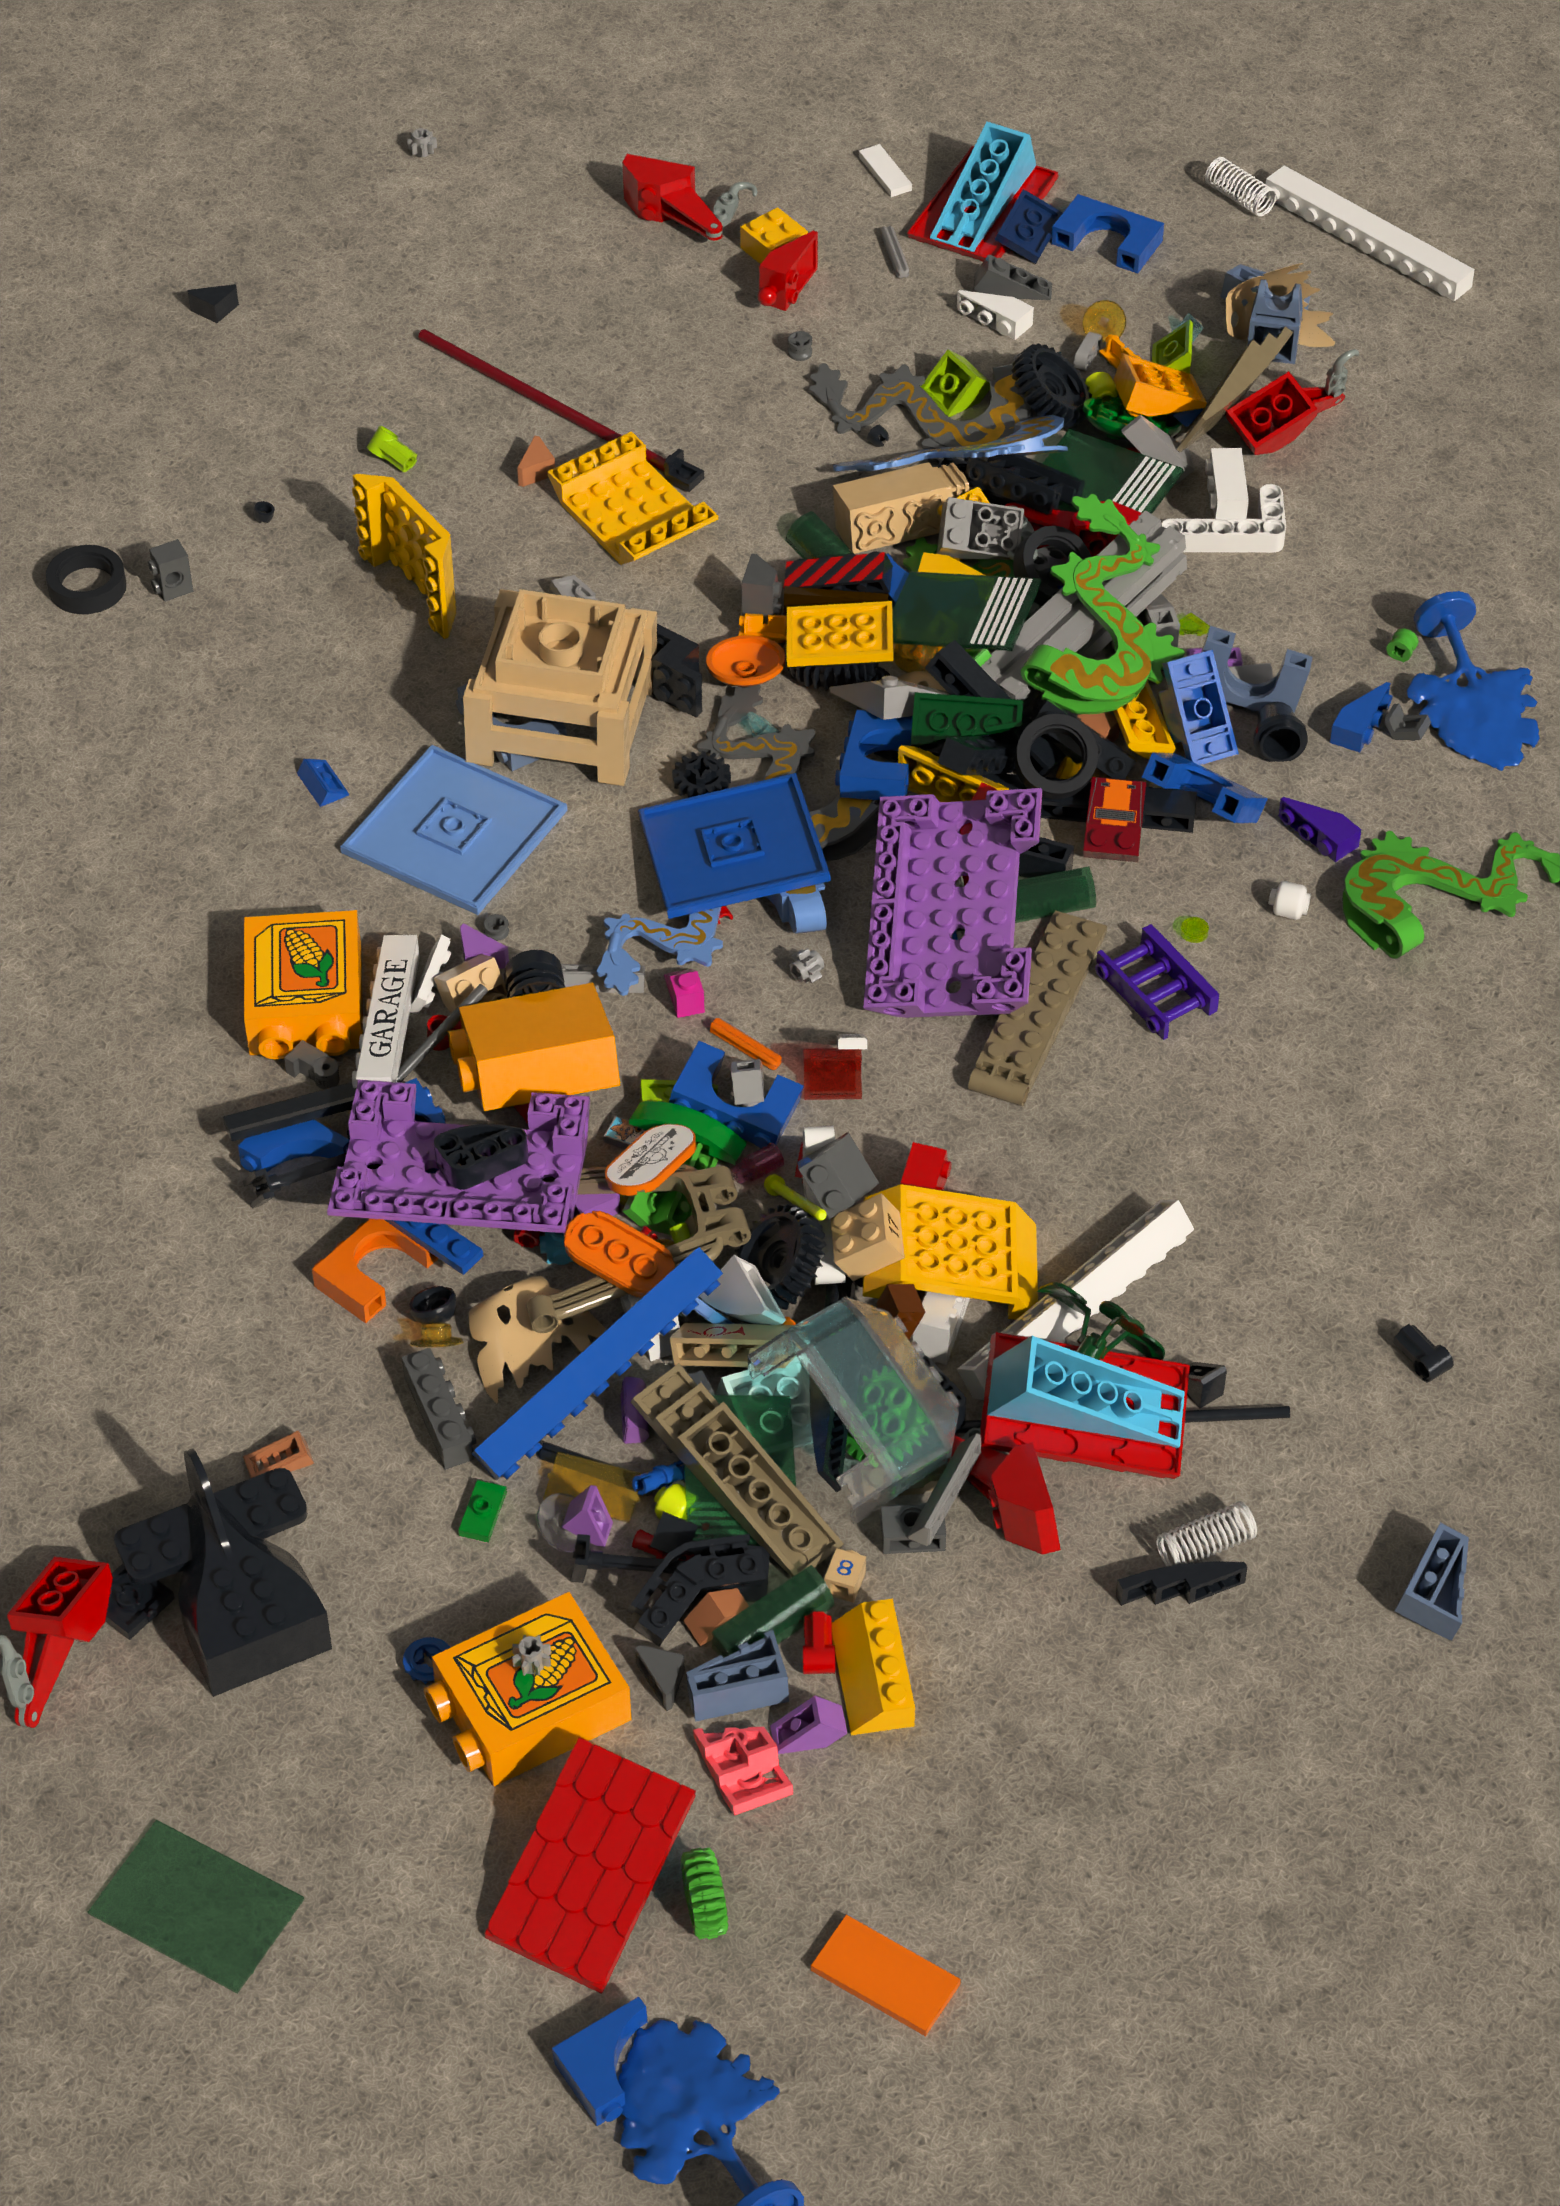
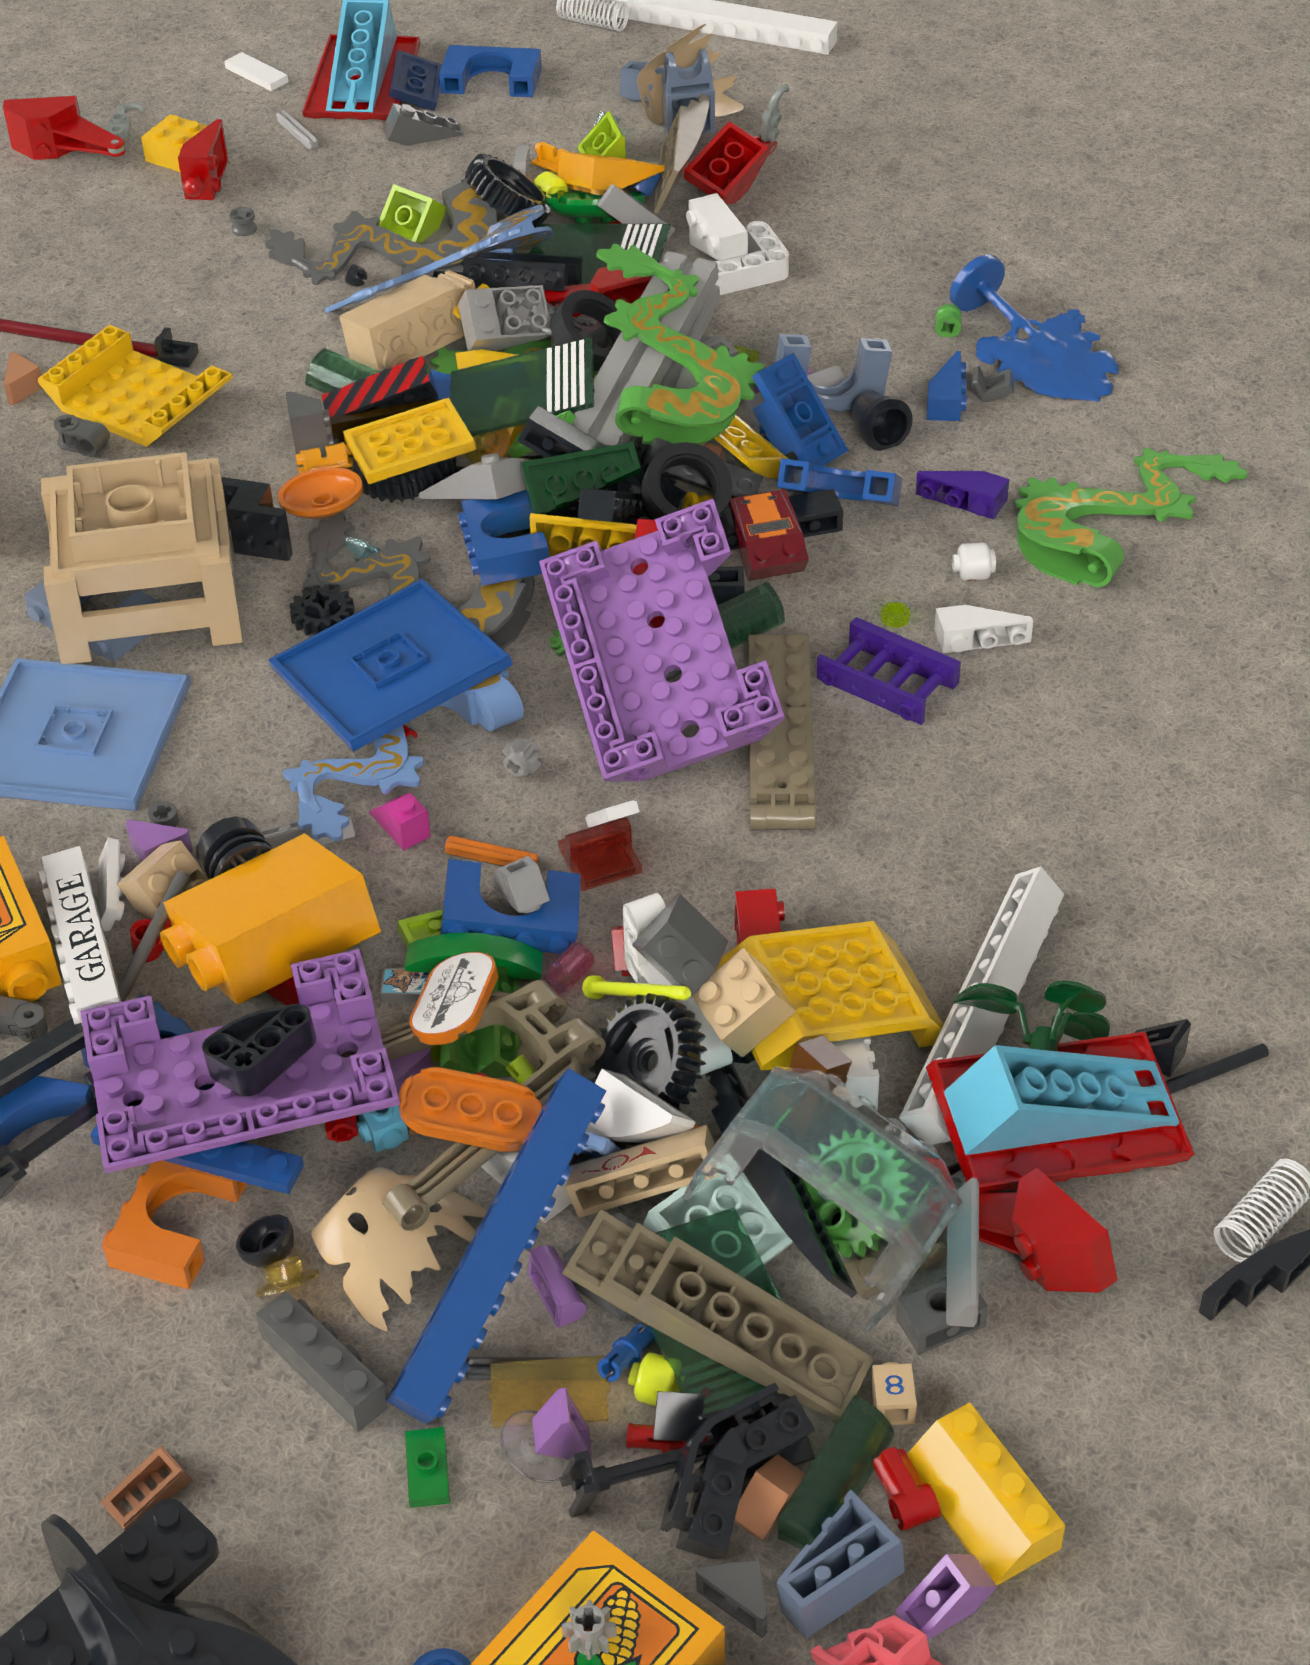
camera: 20 degrees left, 5 degrees down
(566, 538) = (81, 436): none -> dark grey piece
(1003, 313) = (421, 152): white slope -> none
(1111, 311) = (528, 124): clear yellow piece -> none
(1253, 964) = (976, 627): none -> white slope

